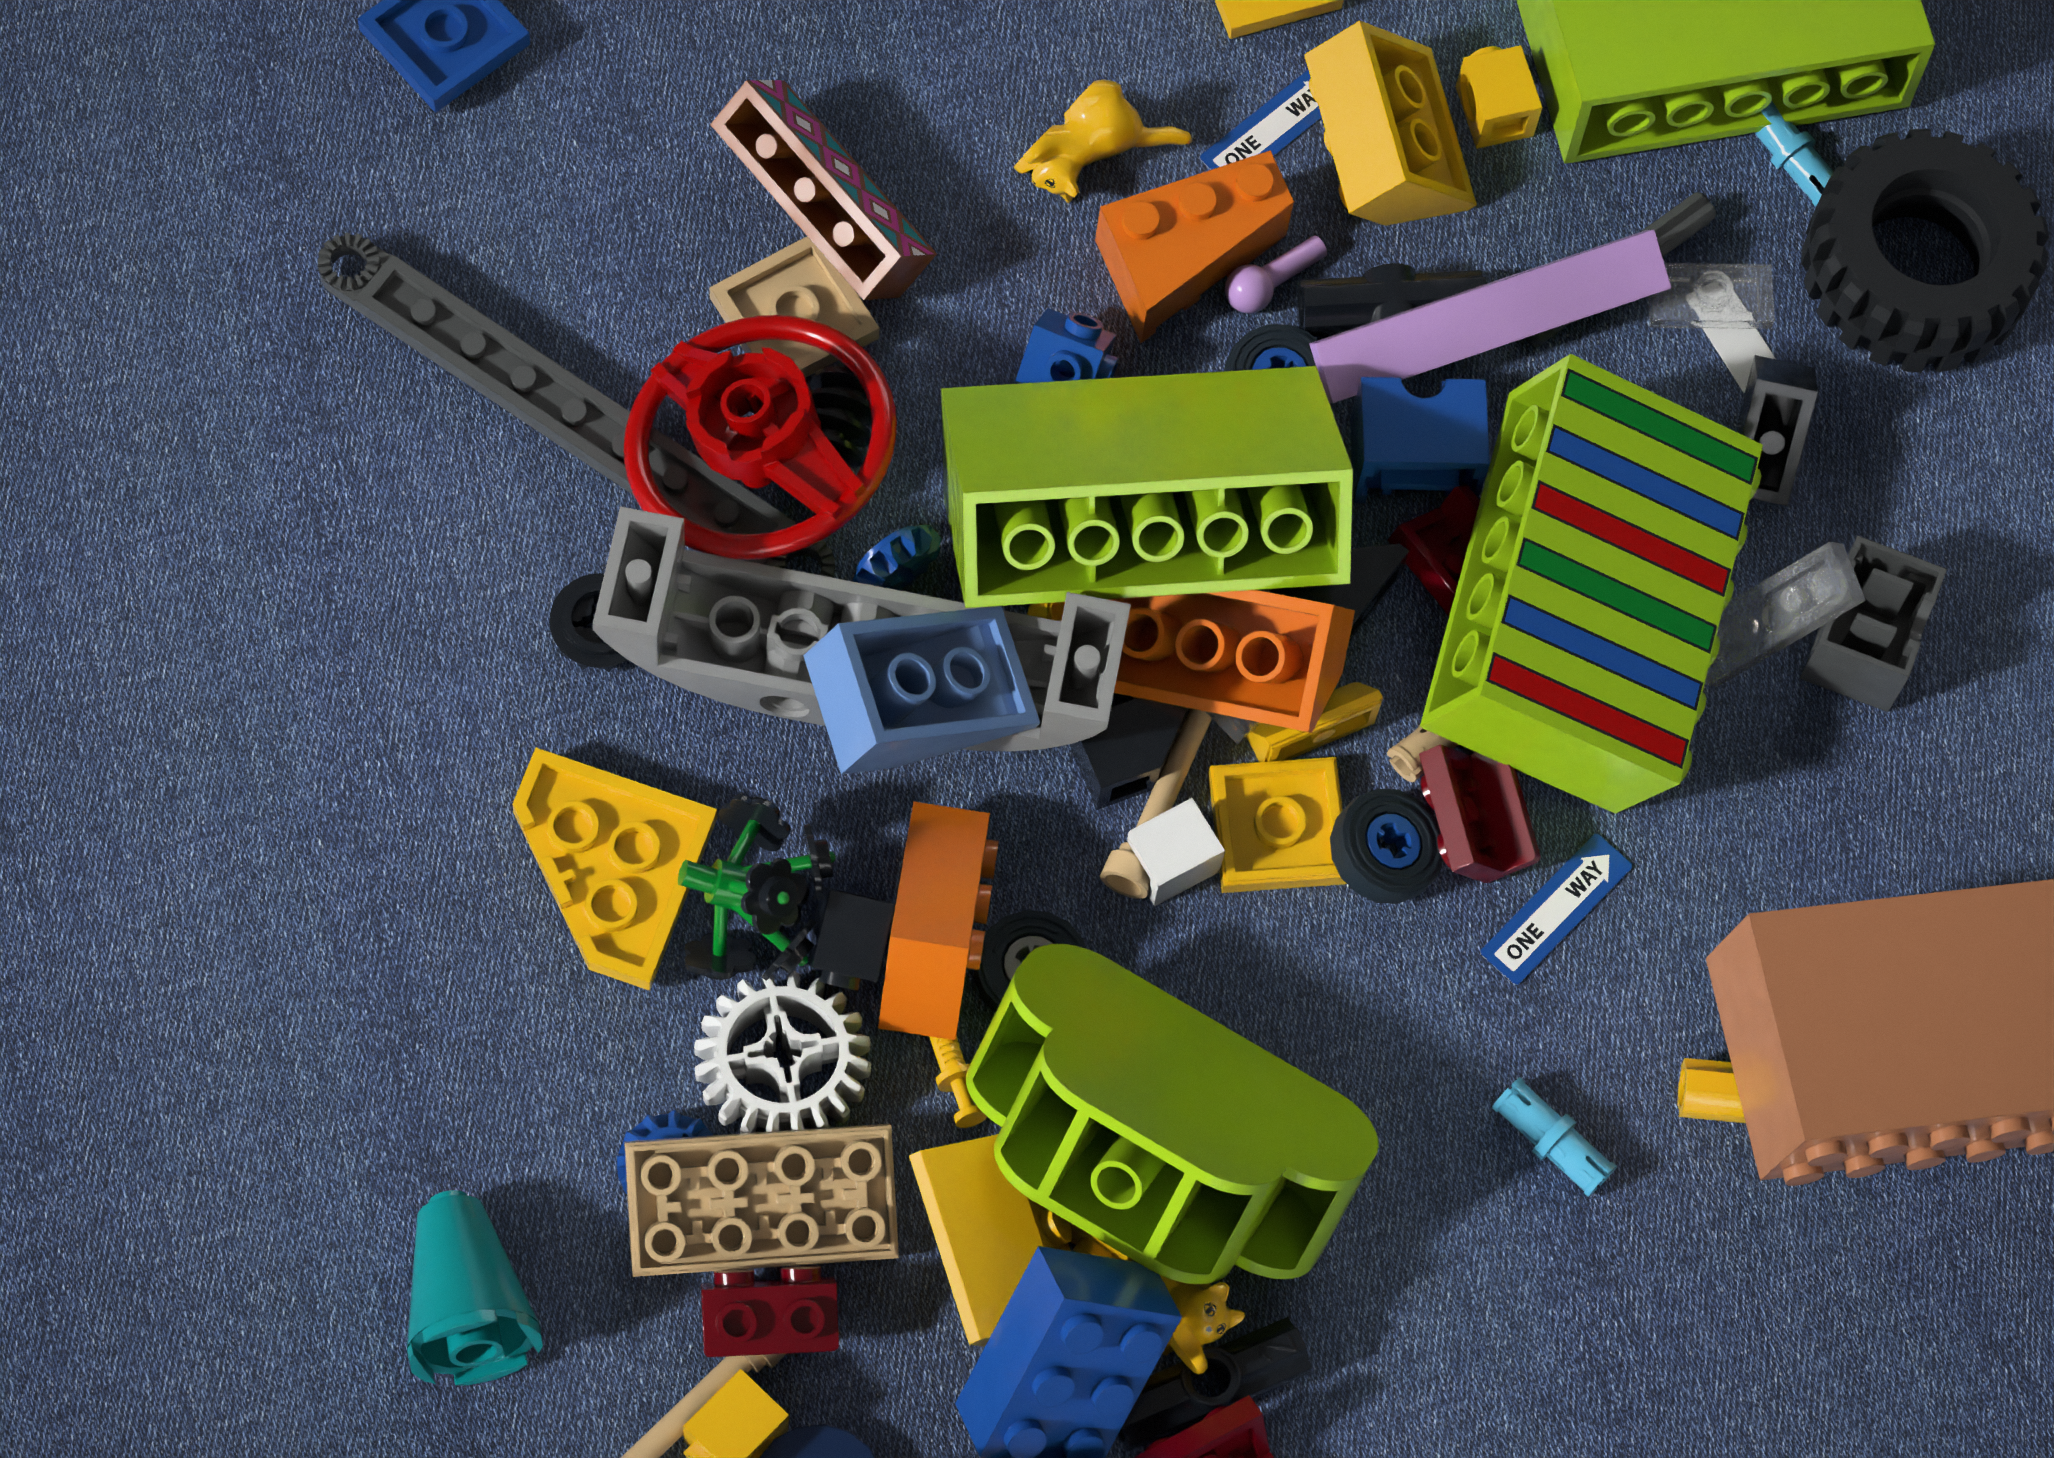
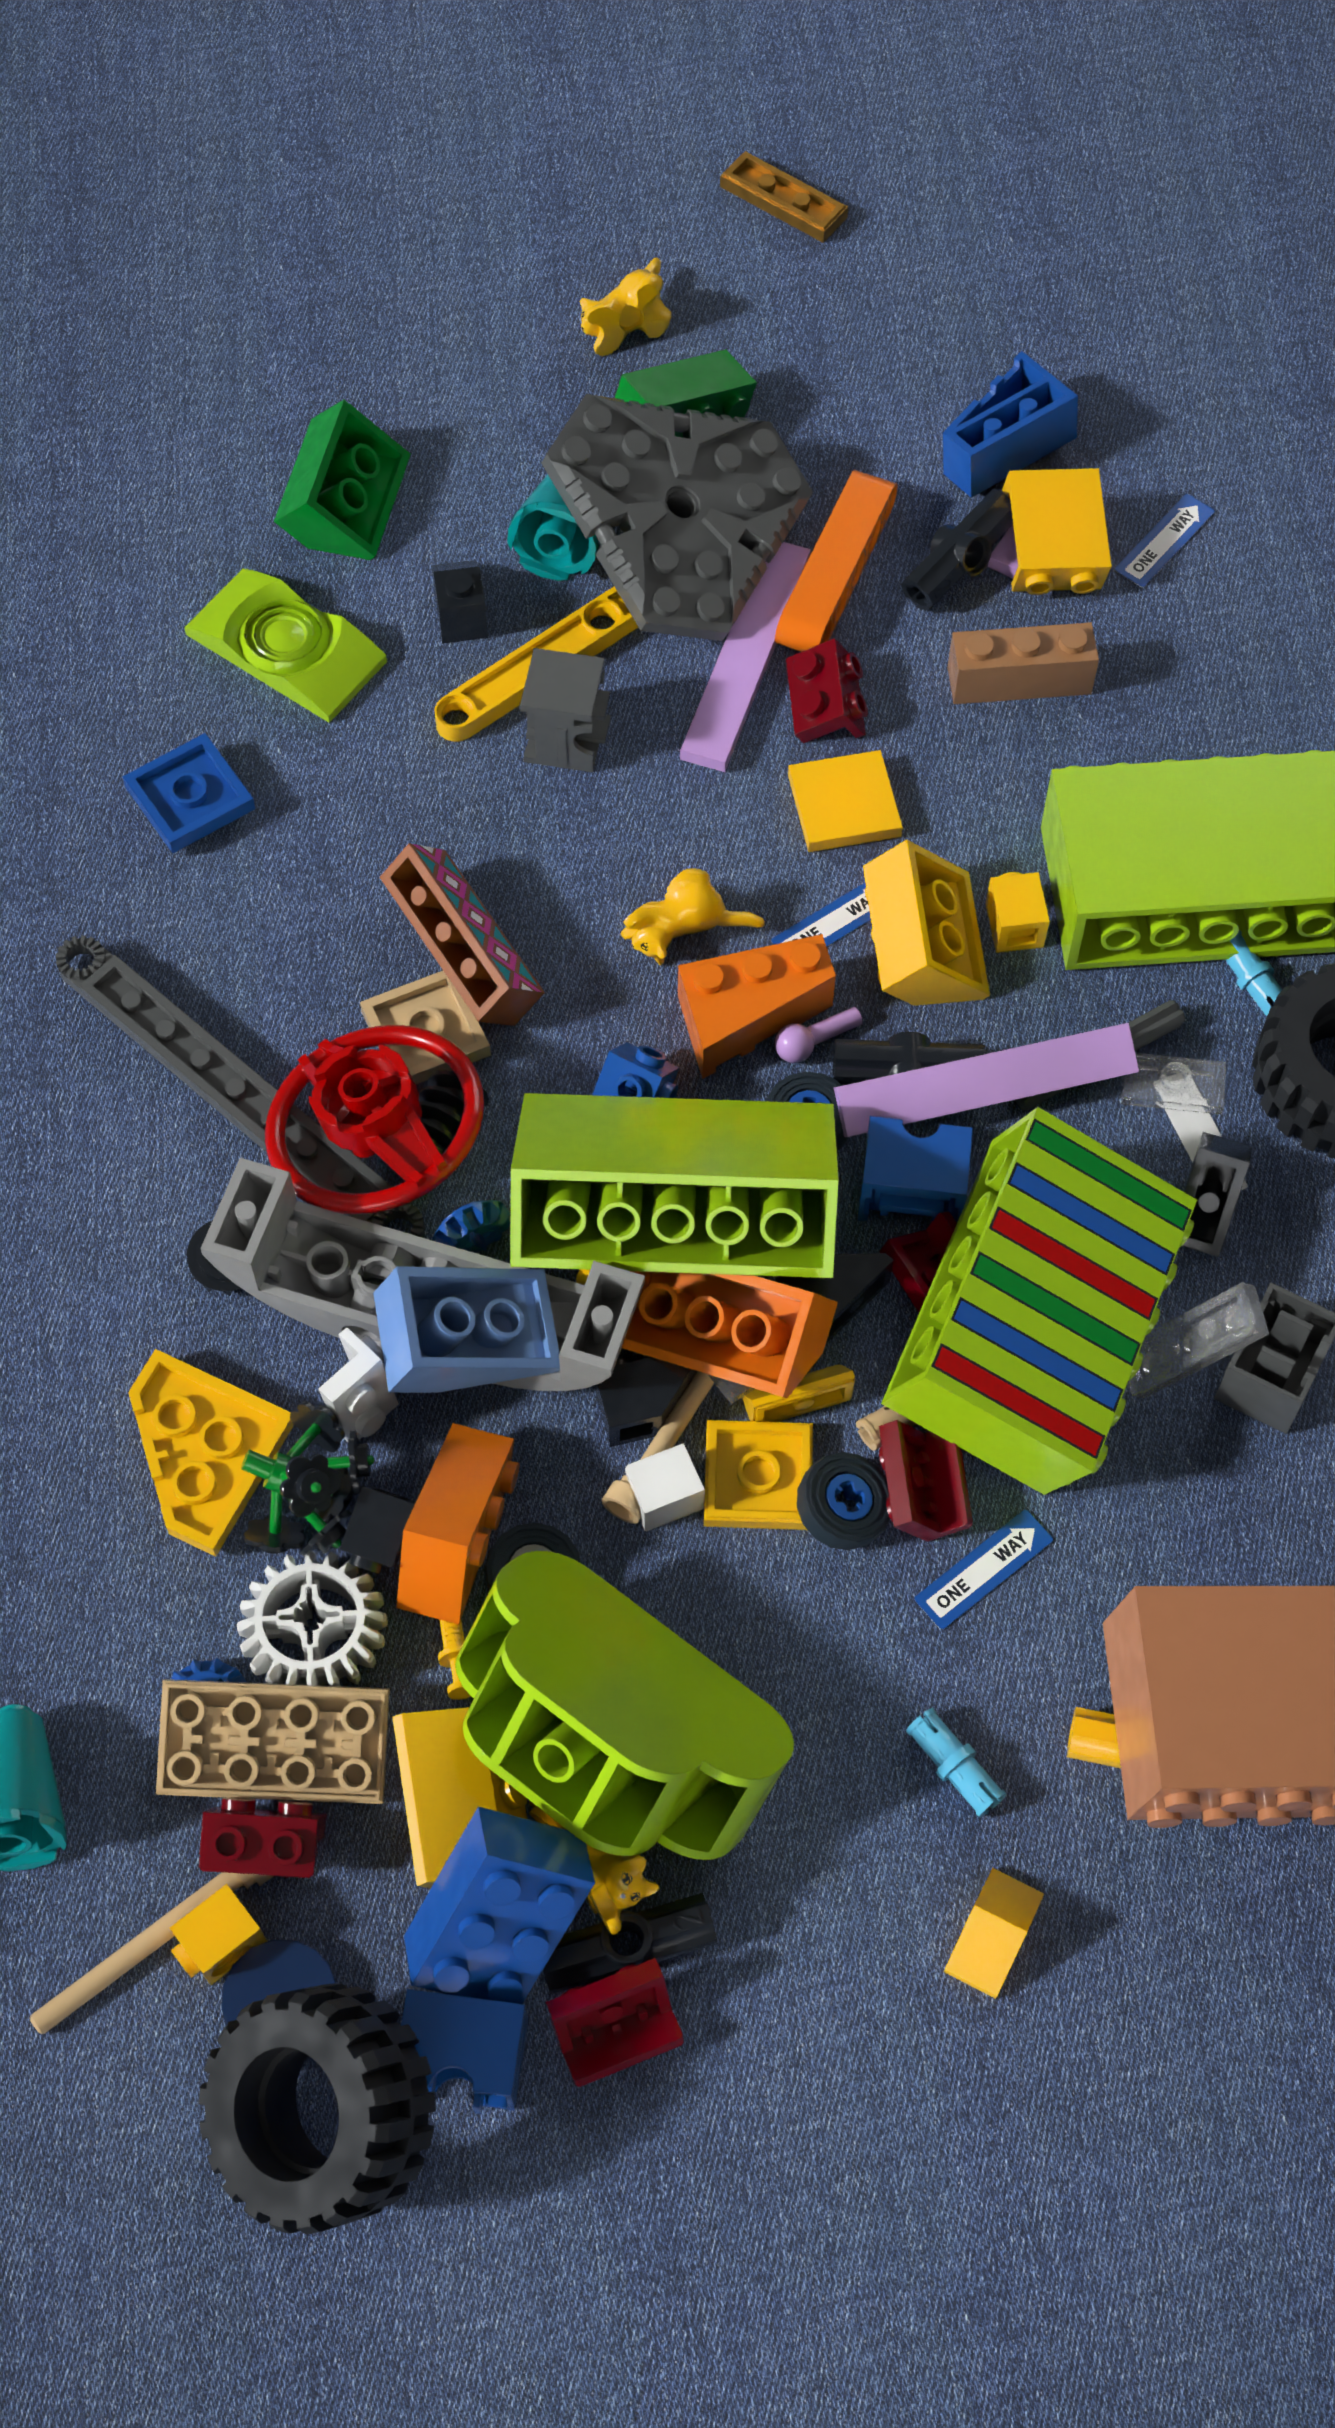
camera: 15 degrees right, 5 degrees down
(802, 770) = (360, 1388): none -> white bracket
(1621, 1325) = (994, 1933): none -> yellow slope

